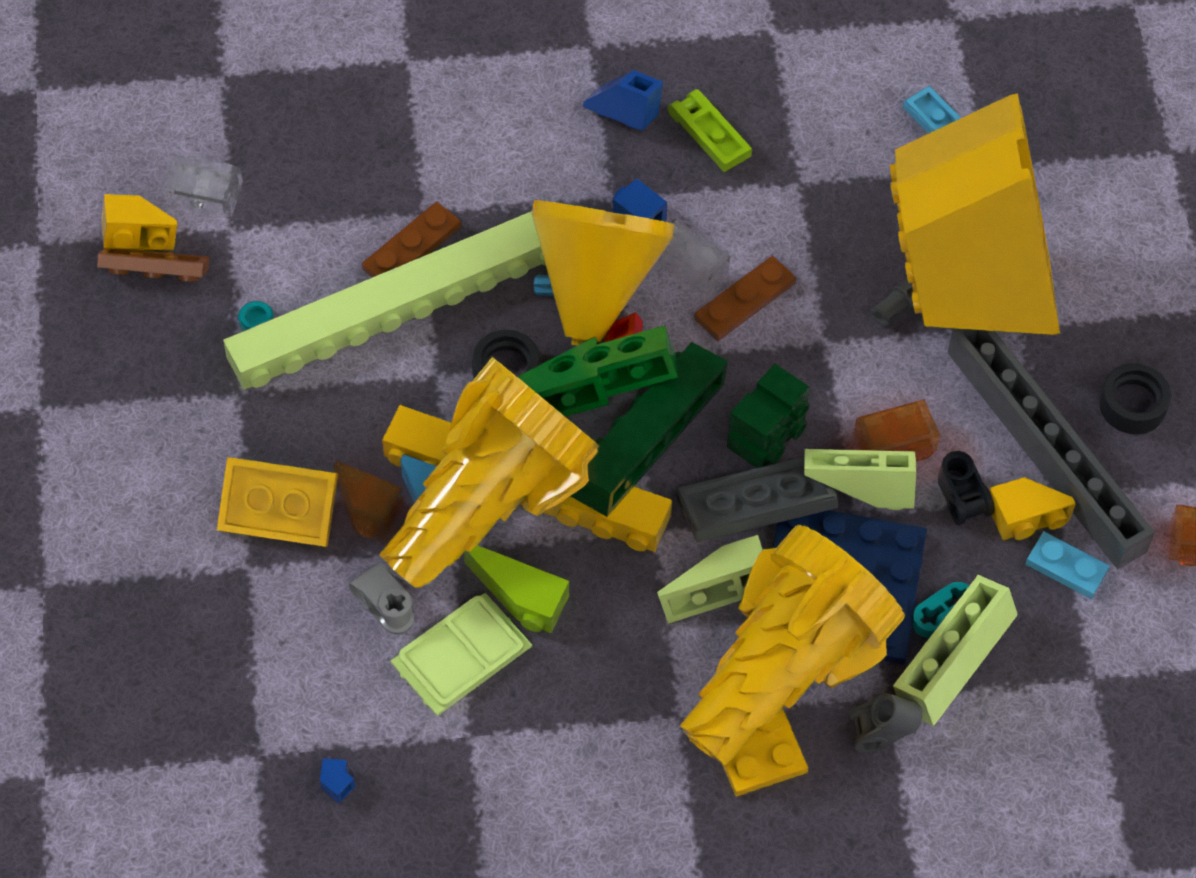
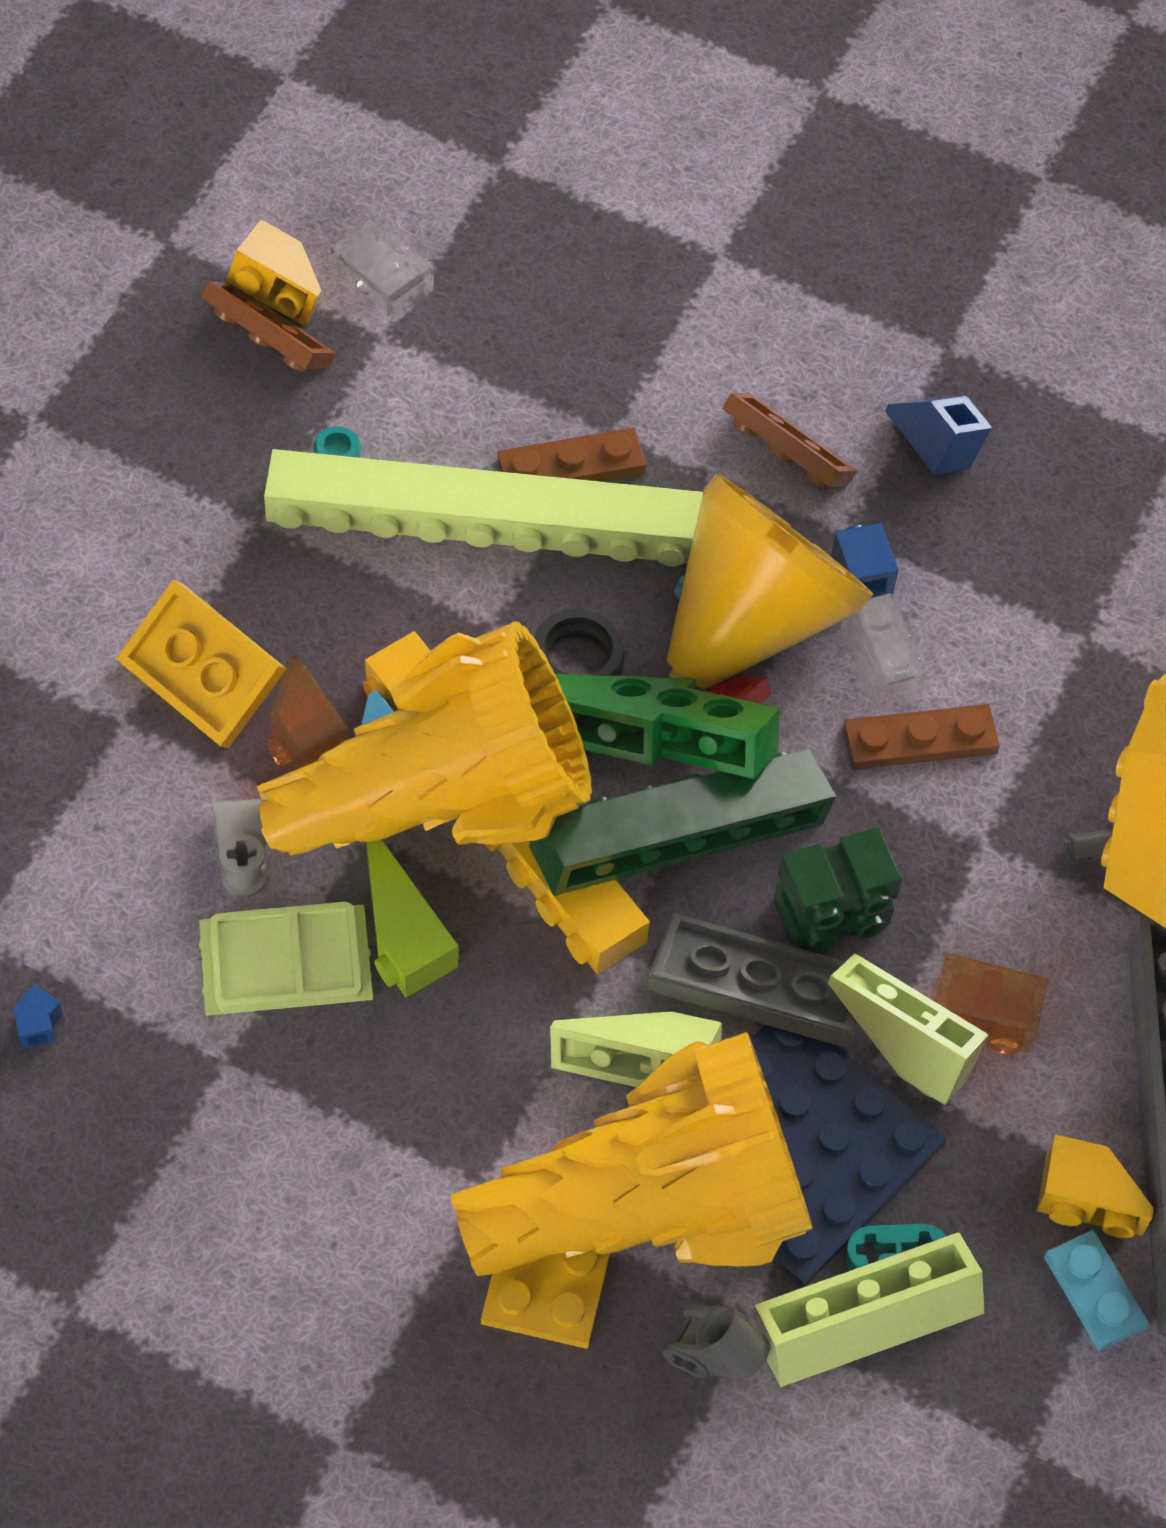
camera: 30 degrees right, 0 degrees up
(538, 158) = (788, 441): none -> dark orange plate
(710, 130) = (1018, 519): lime plate -> none
(966, 494) = (1023, 1124): black piece -> none

